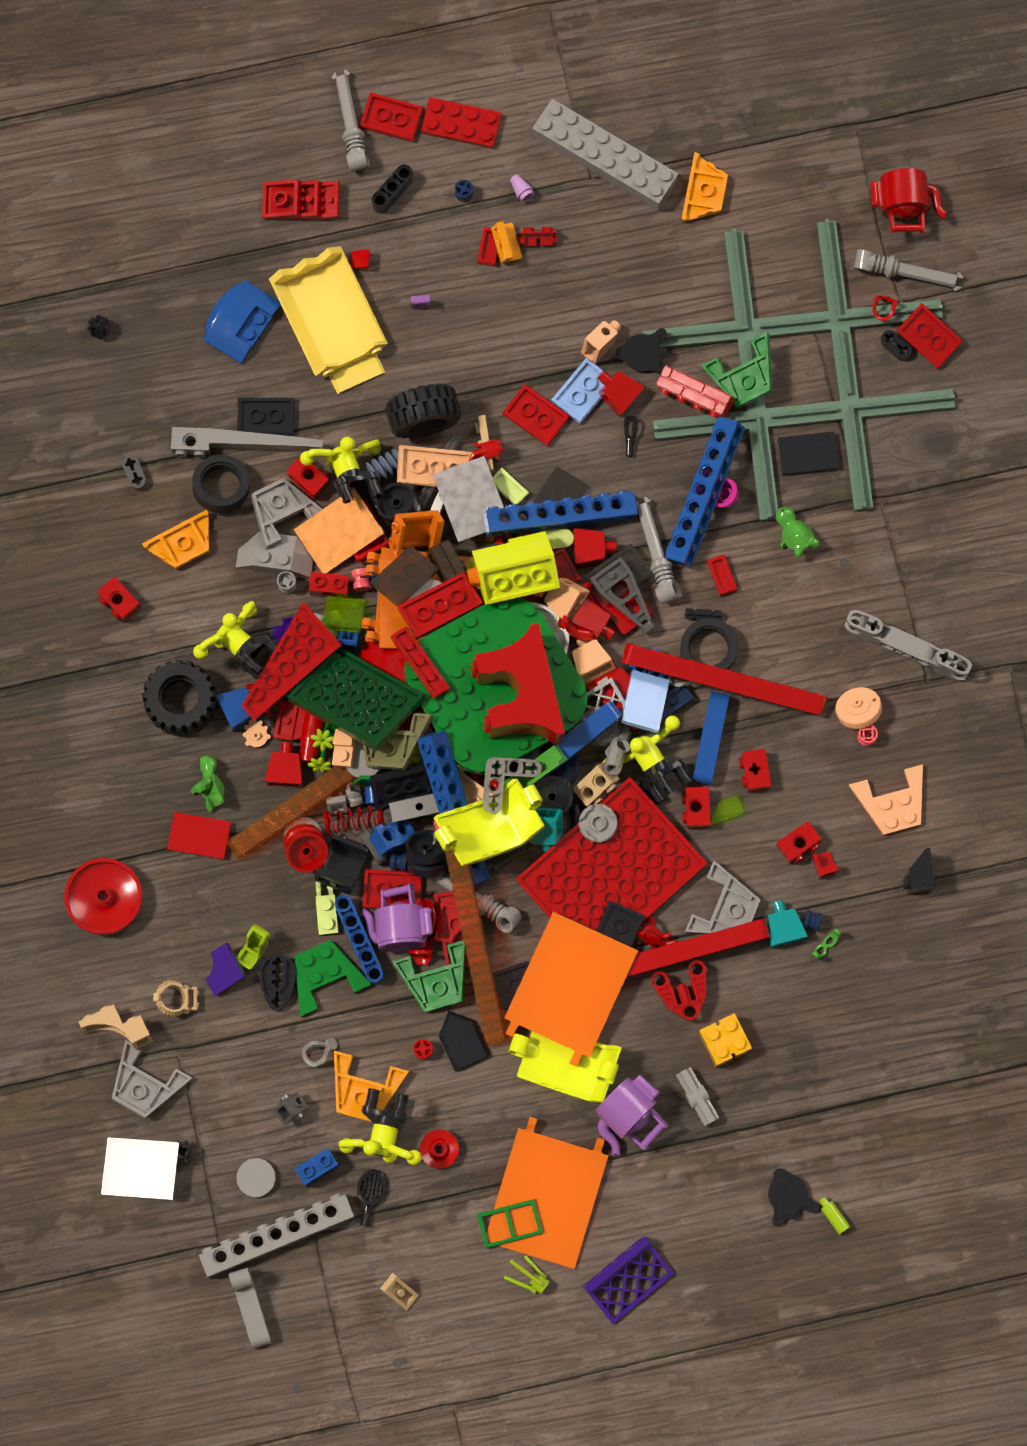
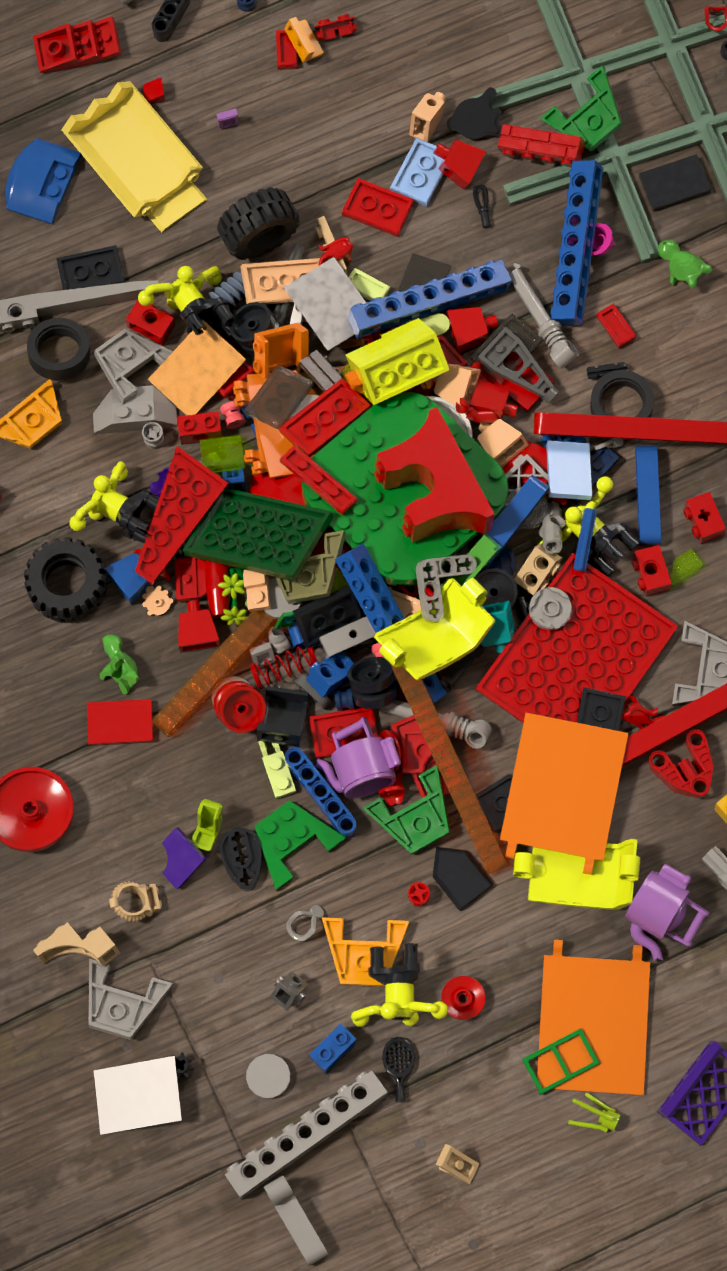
camera: 10 degrees left, 5 degrees down
(642, 769) = (585, 539): none -> blue axle

